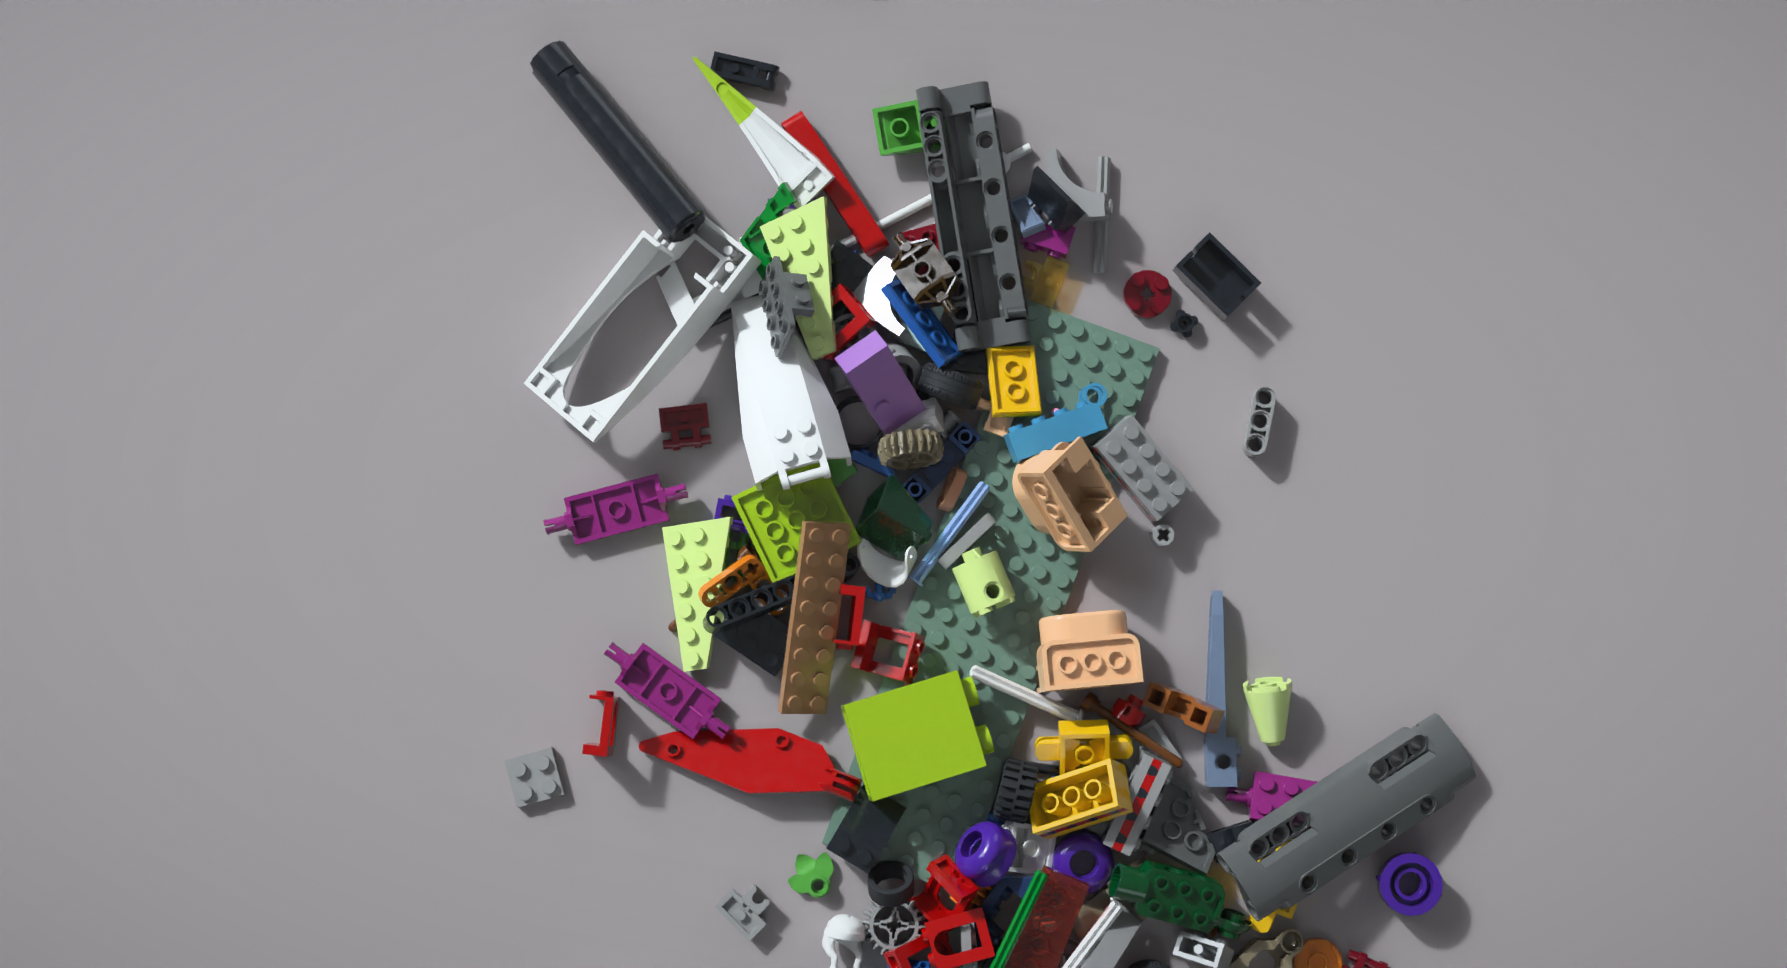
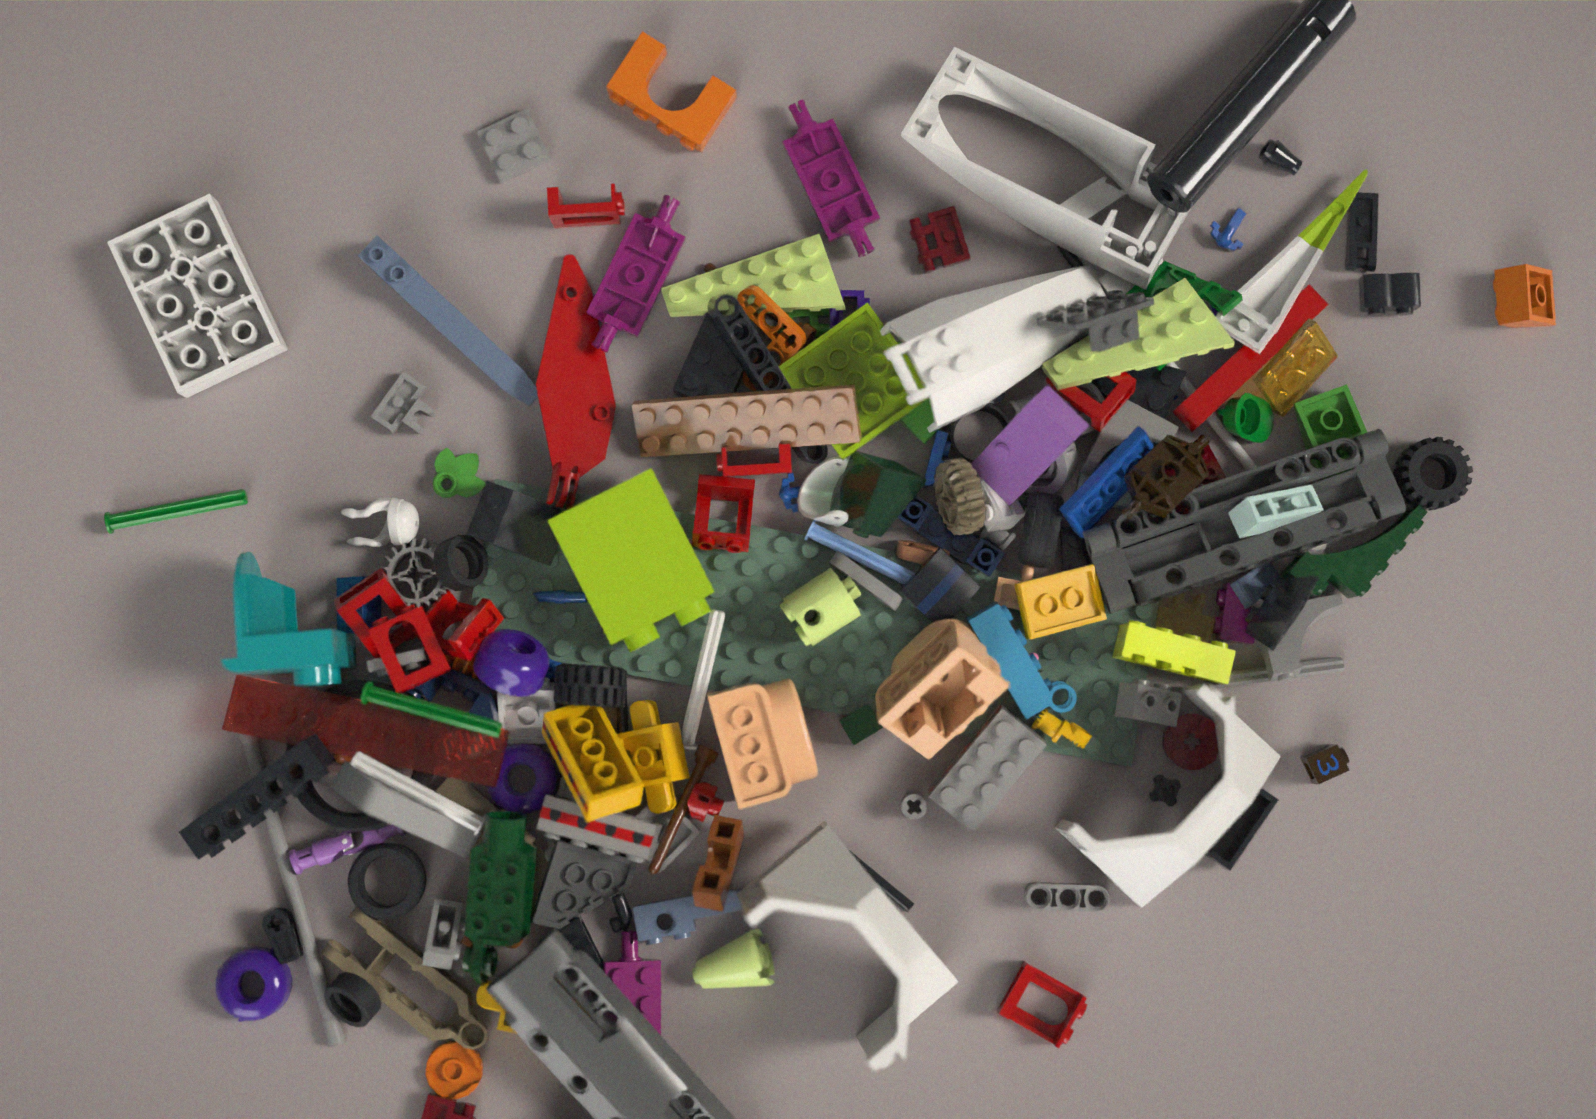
camera: 75 degrees right, 0 degrees up
(546, 621) = (691, 125): none -> orange arch
(667, 127) = (1279, 157): none -> black cone
(678, 859) = (448, 320): none -> sand blue piece
(728, 187) = (1224, 239): none -> blue piece
(800, 58) = (1389, 293): none -> black brick
(850, 148) = (1295, 367): none -> clear yellow plate
(885, 195) = (1248, 417): none -> green piece
(934, 803) = (560, 596): none -> blue piece
(959, 33) = (1453, 464): none -> black tyre
(969, 189) = (1273, 510): none -> light aqua slope
(983, 479) = (940, 587): none -> black slope
(1026, 131) = (1355, 568): none -> dark green arch
(1073, 295) = (1174, 653): none -> neon yellow wedge
(1086, 567) = (860, 724): none -> dark green panel
(1111, 324) = (1148, 704): none -> light grey brick
(1118, 403) = (1055, 728): none -> yellow connector
(1184, 187) = (1326, 763): none -> dark brown brick
(1210, 795) = (623, 911): none -> black arm
(1217, 619) = (828, 882): none -> white panel
(1218, 576) = (886, 887): none -> black bar
(1246, 347) = (1152, 862): none -> white panel
(1370, 451) = (1054, 1034): none -> red panel

